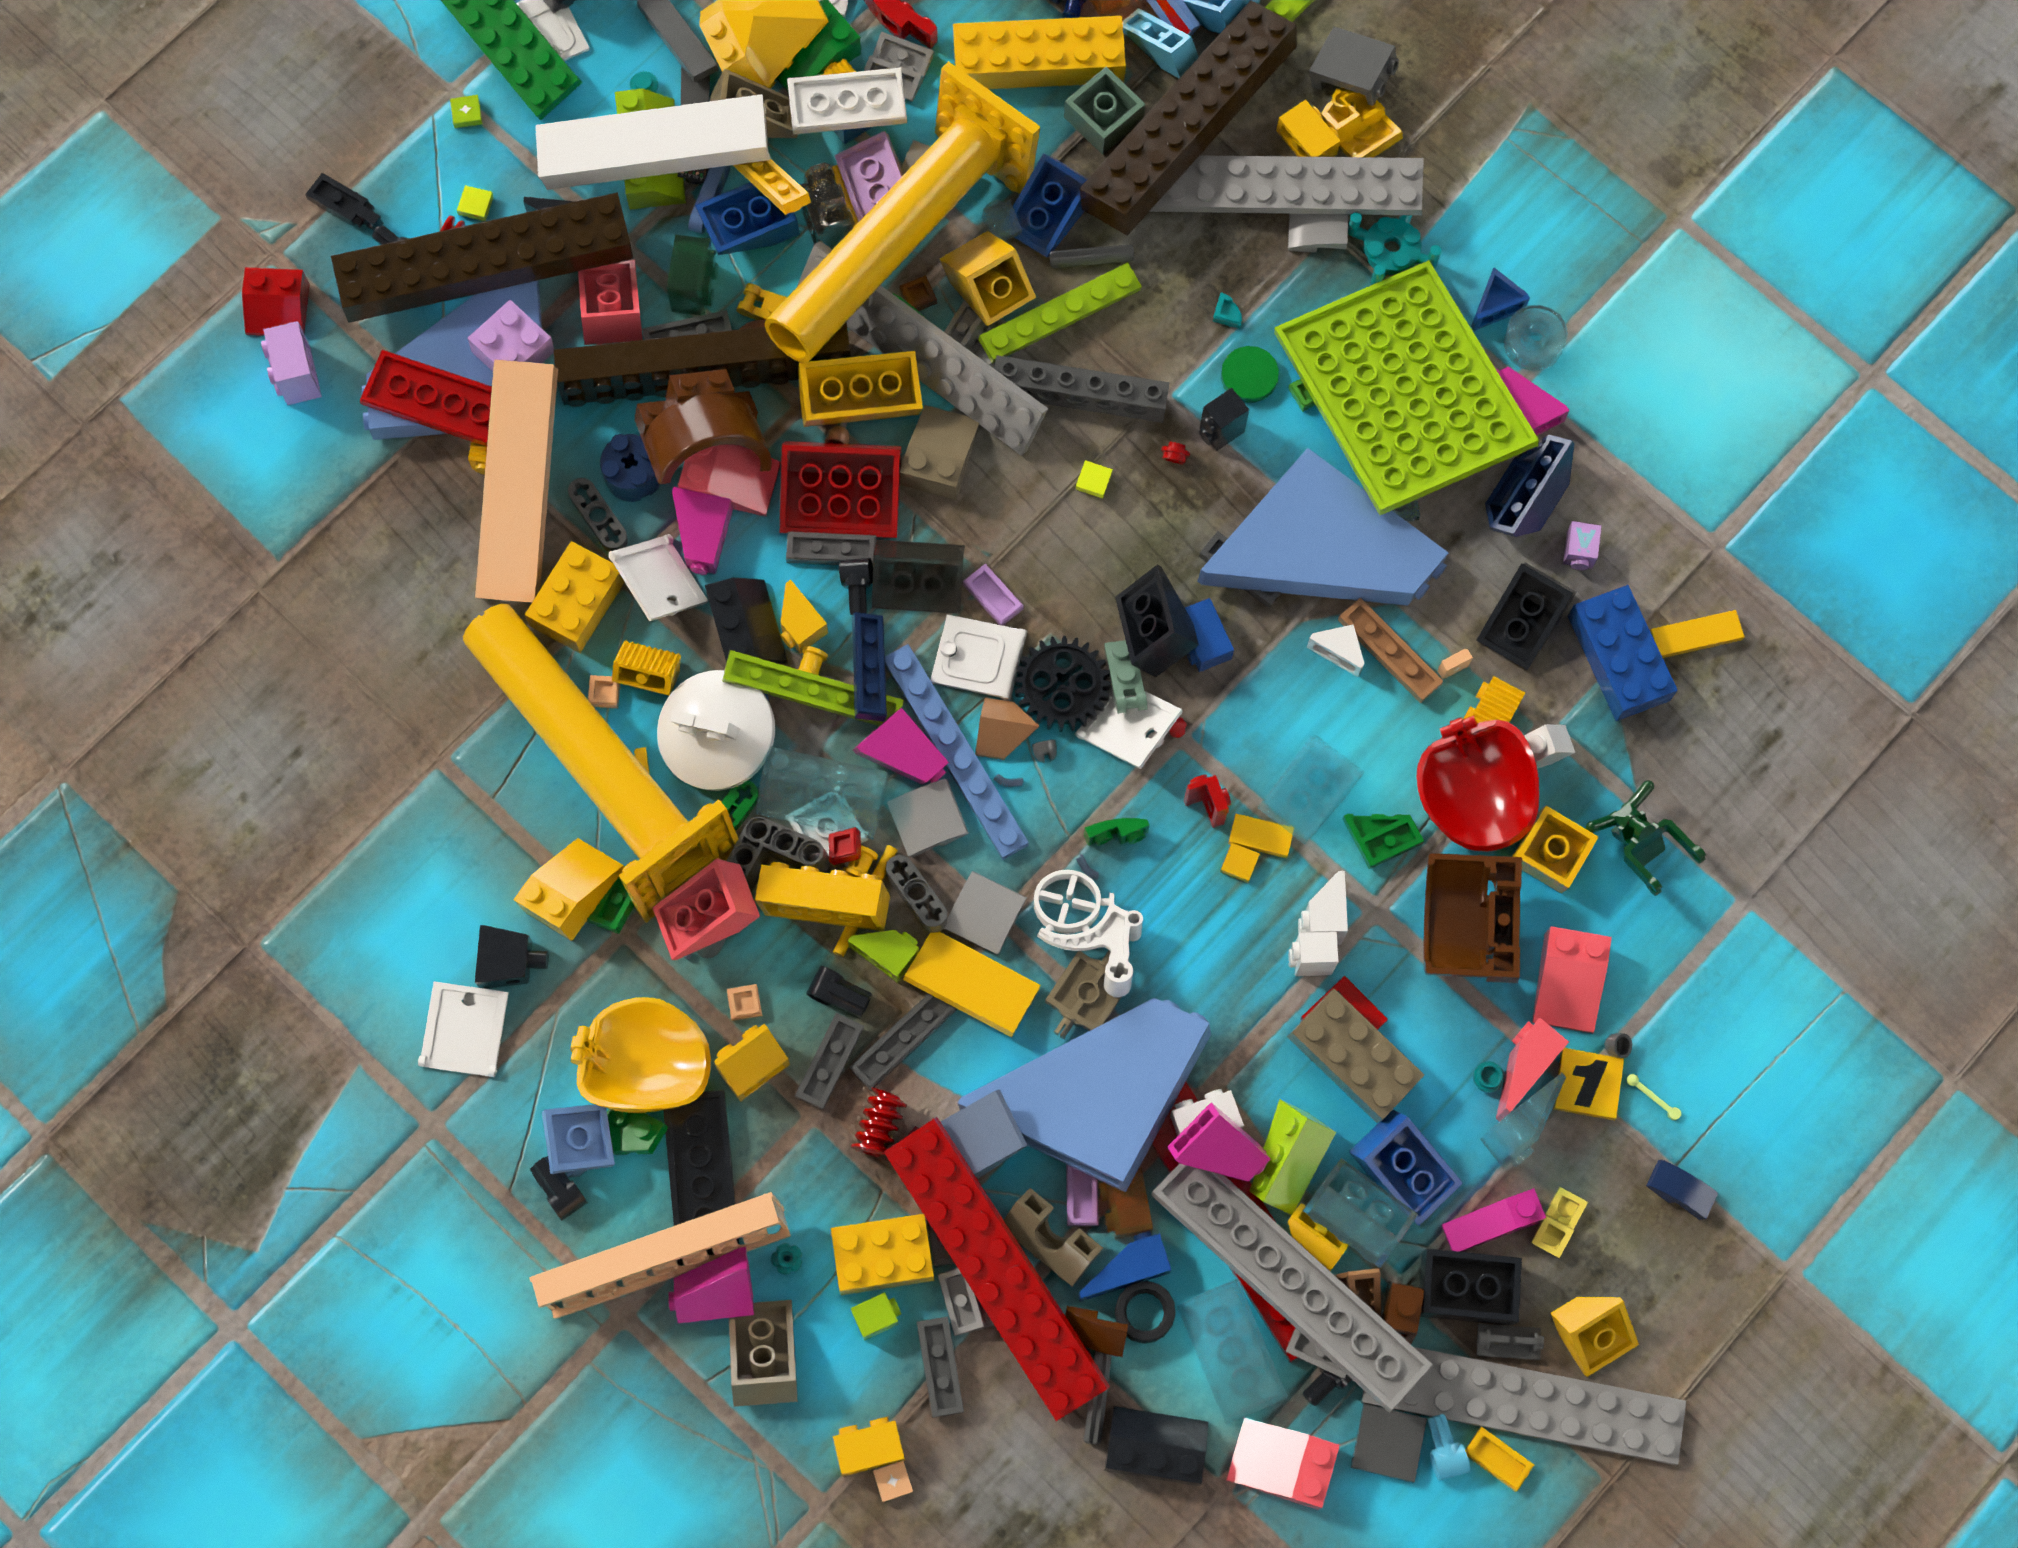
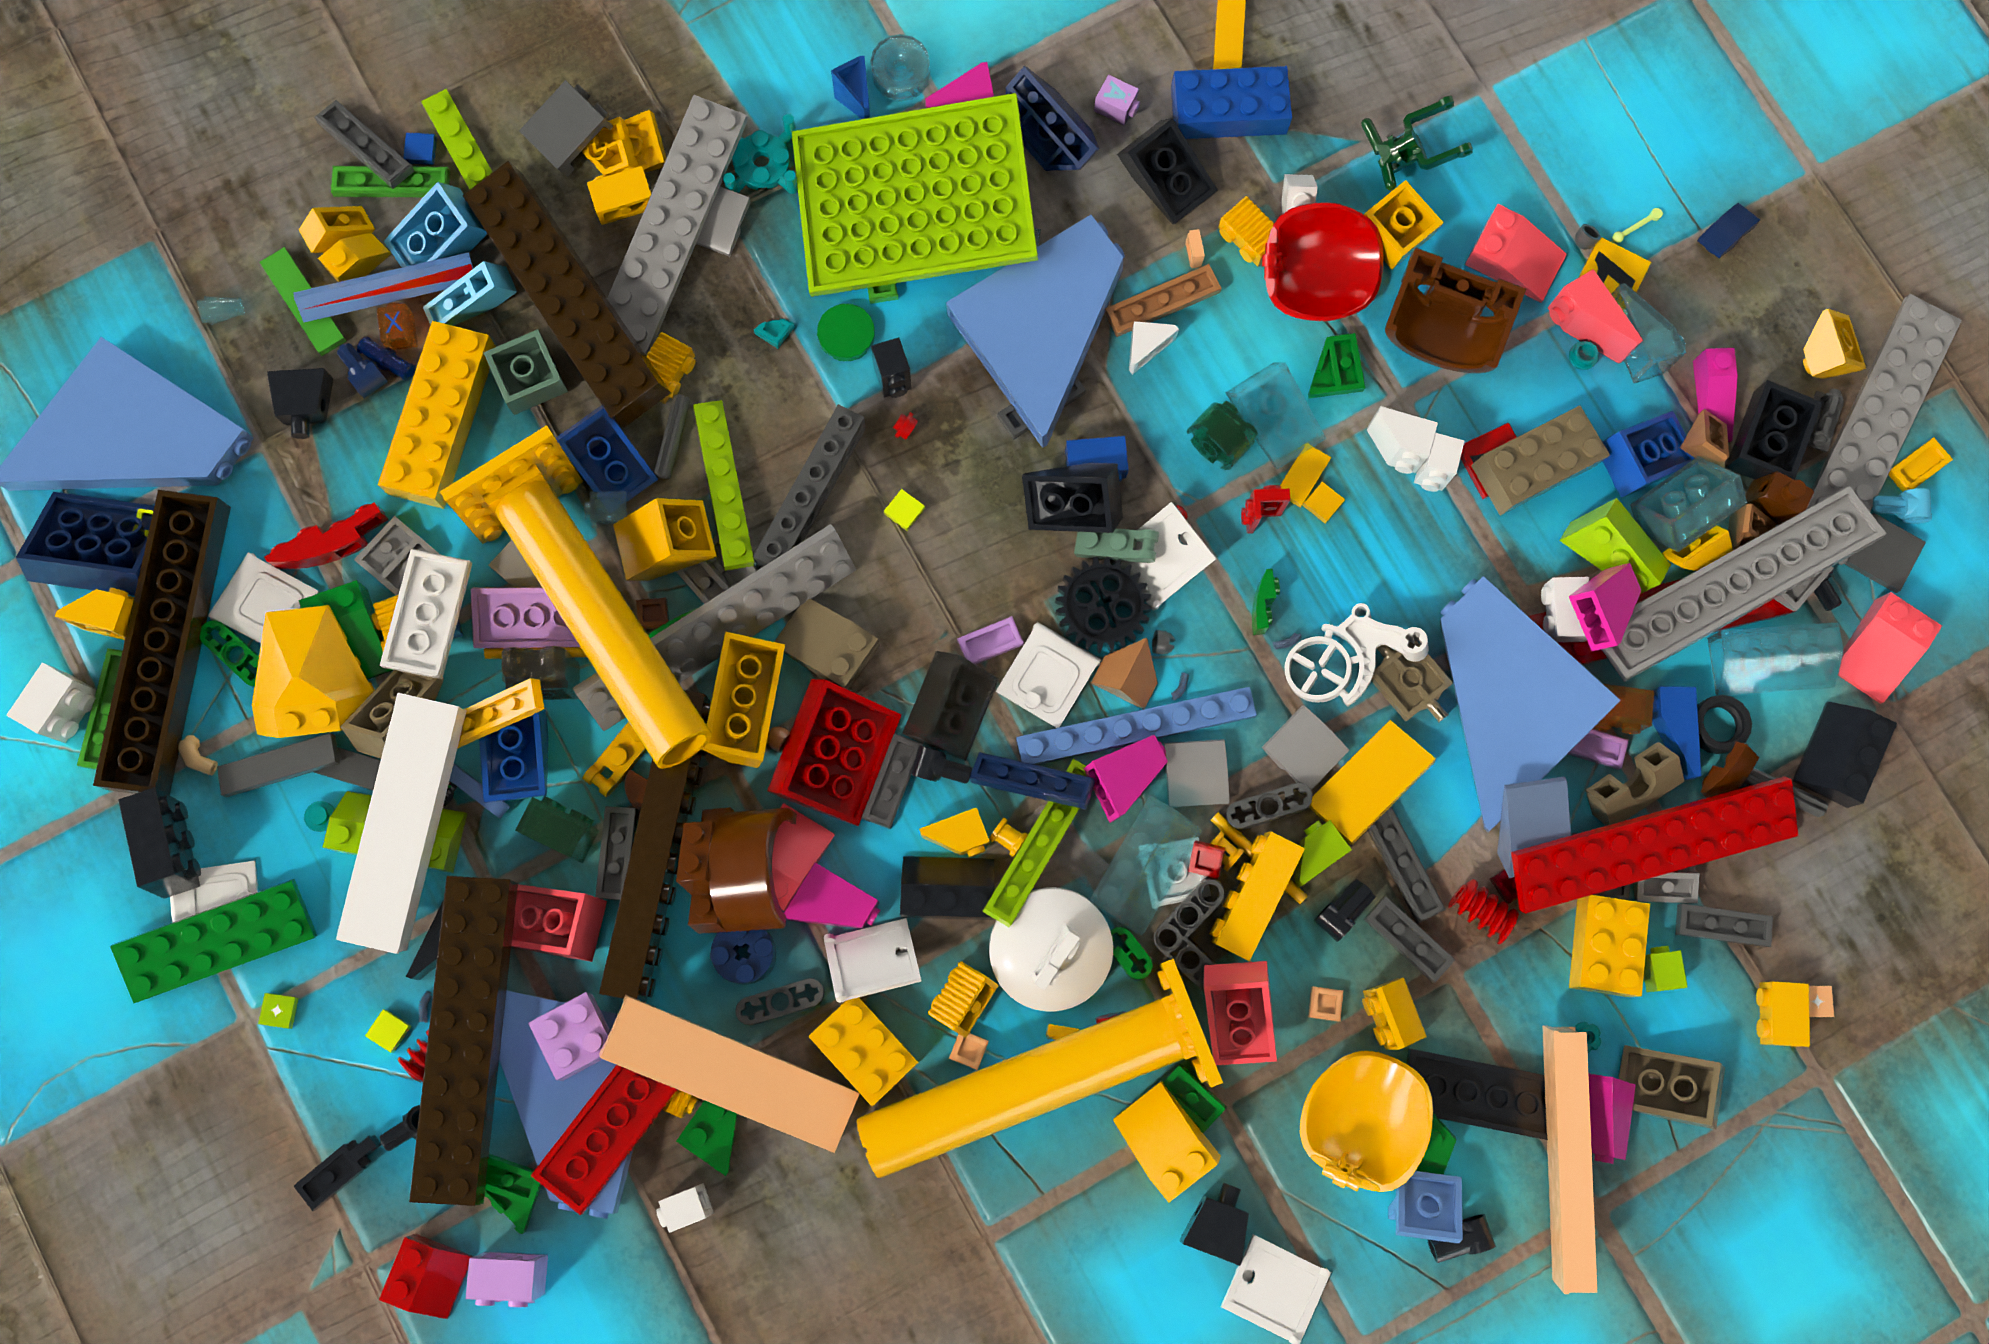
camera: 75 degrees left, 5 degrees up
(366, 344) = (512, 1190): none -> green wing
(391, 488) = (684, 1208): none -> white brick
(458, 495) = (711, 1135): none -> green wing
(1158, 229) = (671, 361): none -> yellow brick
(1267, 739) = (1222, 434): none -> clear green brick
(1439, 1224) = (1707, 439): none -> medium nougat slope
(1560, 1222) = (1719, 333): light yellow slope -> none

